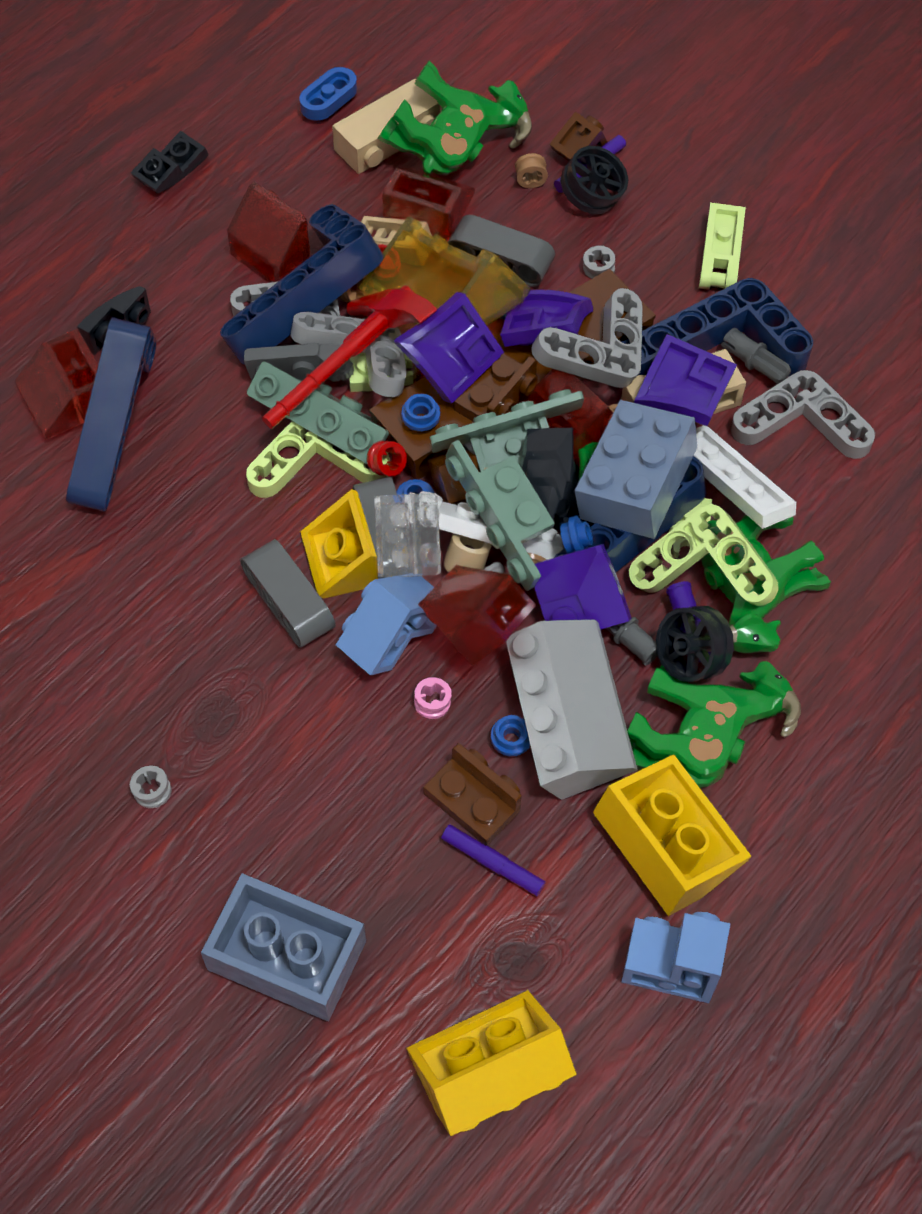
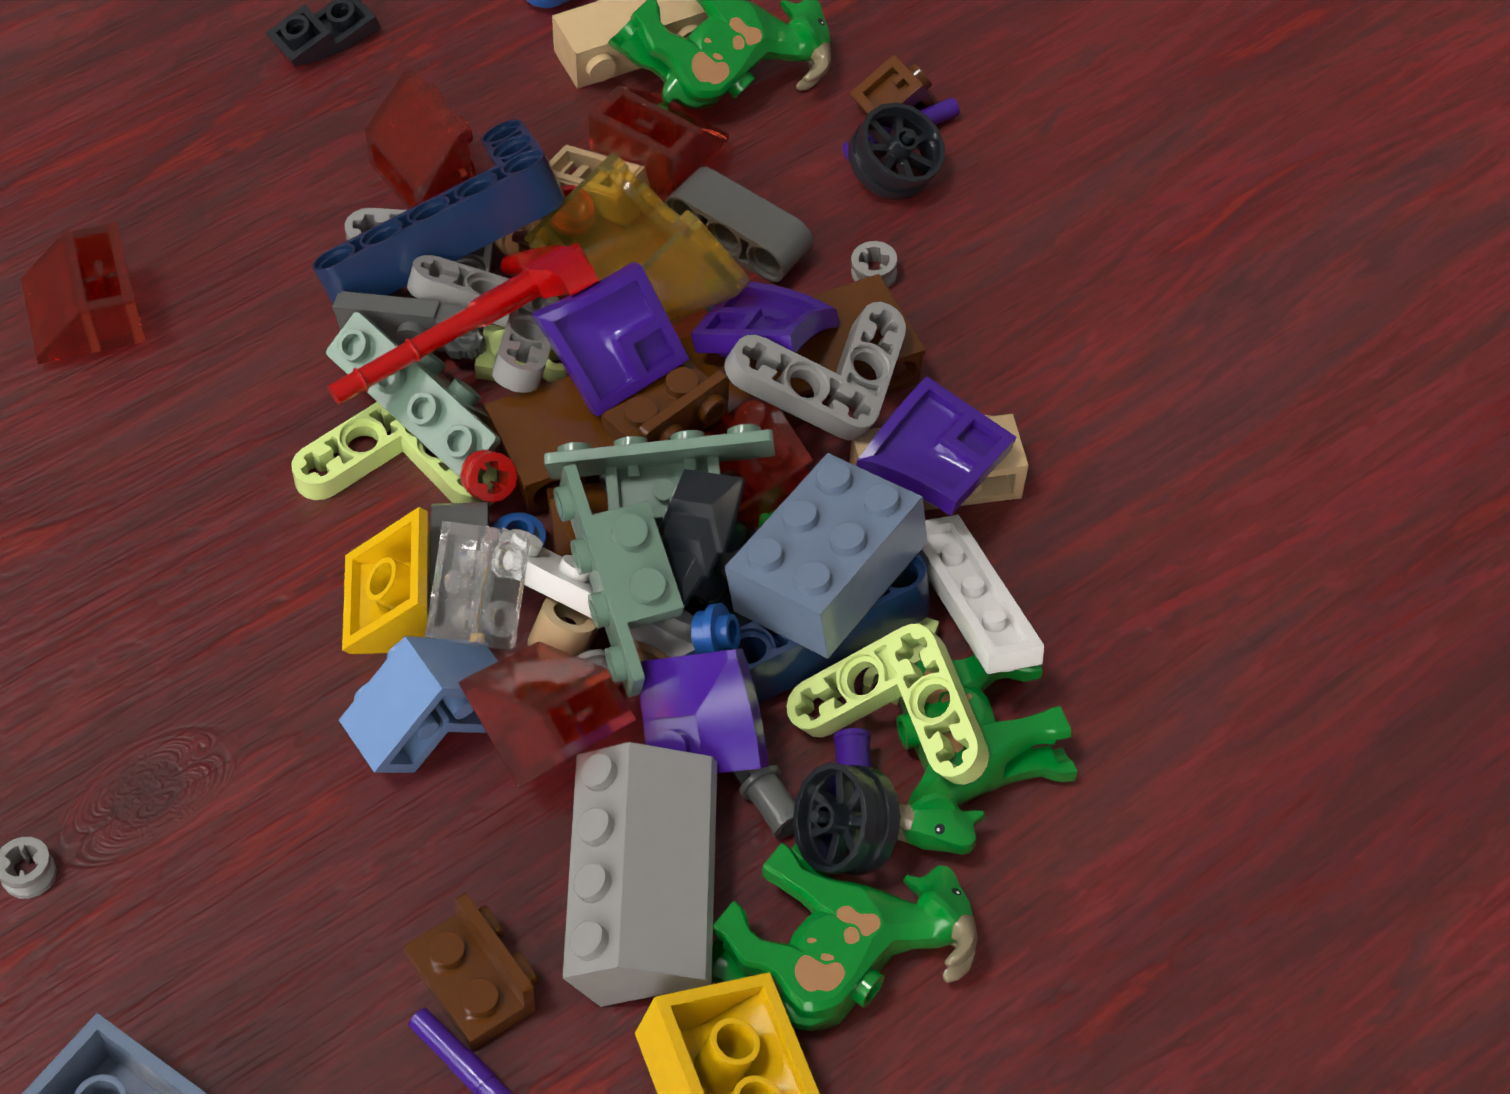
camera: 10 degrees right, 5 degrees down
(125, 354) = (124, 338): dark blue beam -> none
(127, 306) = (189, 214): black slope -> none
(287, 593) = (298, 636): dark grey beam -> none
(420, 405) = (550, 409): blue plate -> none
(437, 707) = (457, 839): bright pink bush -> none
(507, 725) = (541, 886): blue plate -> none
(531, 170) = (813, 124): medium nougat bush -> none
(722, 245) = (1054, 274): yellowish green plate -> none
(744, 306) = (1030, 368): dark blue beam -> none
(756, 356) = (1059, 432): dark grey axle -> none
(810, 406) = (1117, 515): light grey beam -> none

